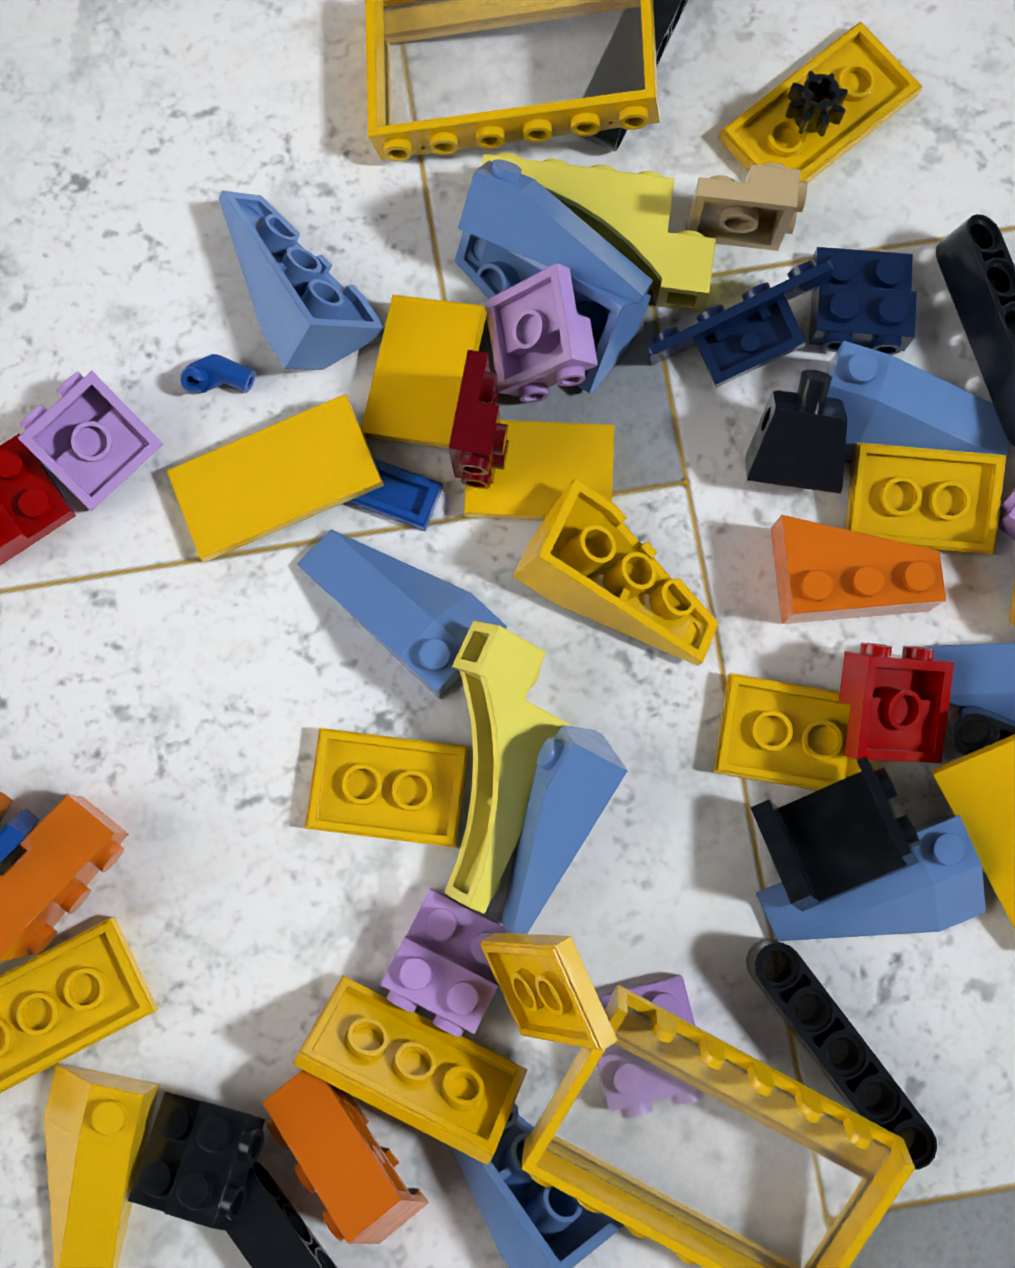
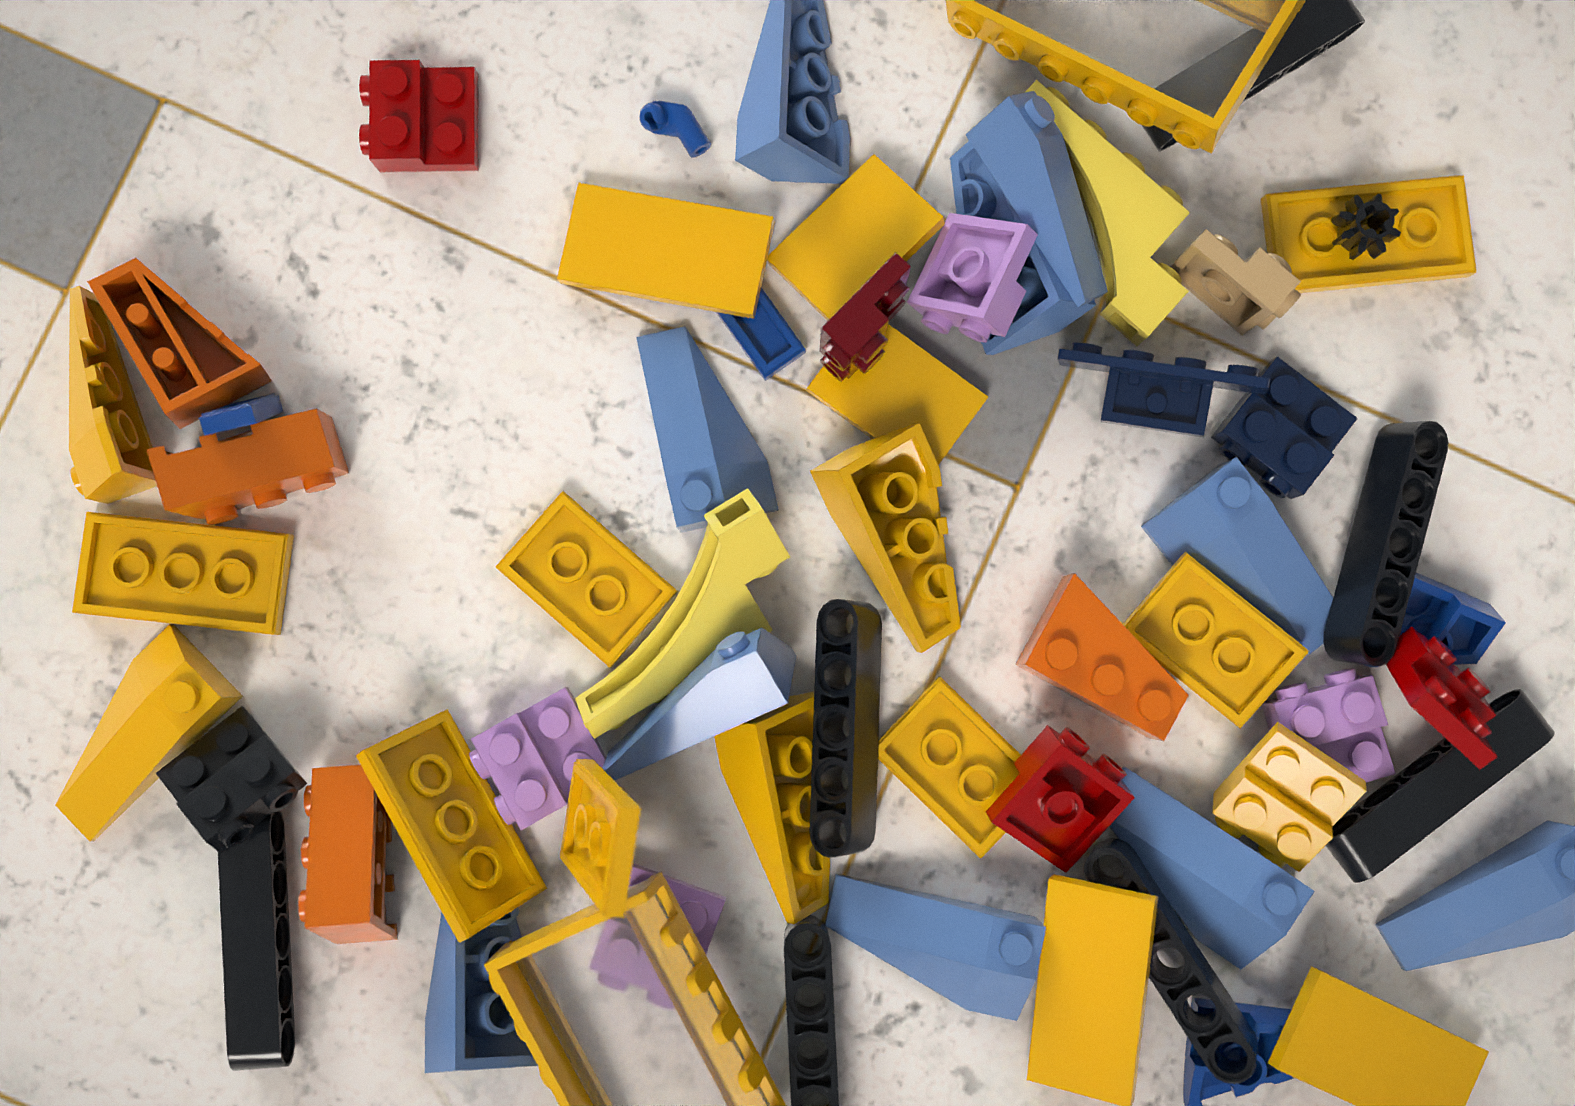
camera: 30 degrees right, 5 degrees up
(88, 438) = (529, 111): lavender plate -> none
(663, 853) = (770, 781): none -> yellow wedge
(684, 790) = (830, 746): none -> black beam
(800, 438) = (1139, 517): black torso -> none
(837, 837) = (930, 875): black panel -> none

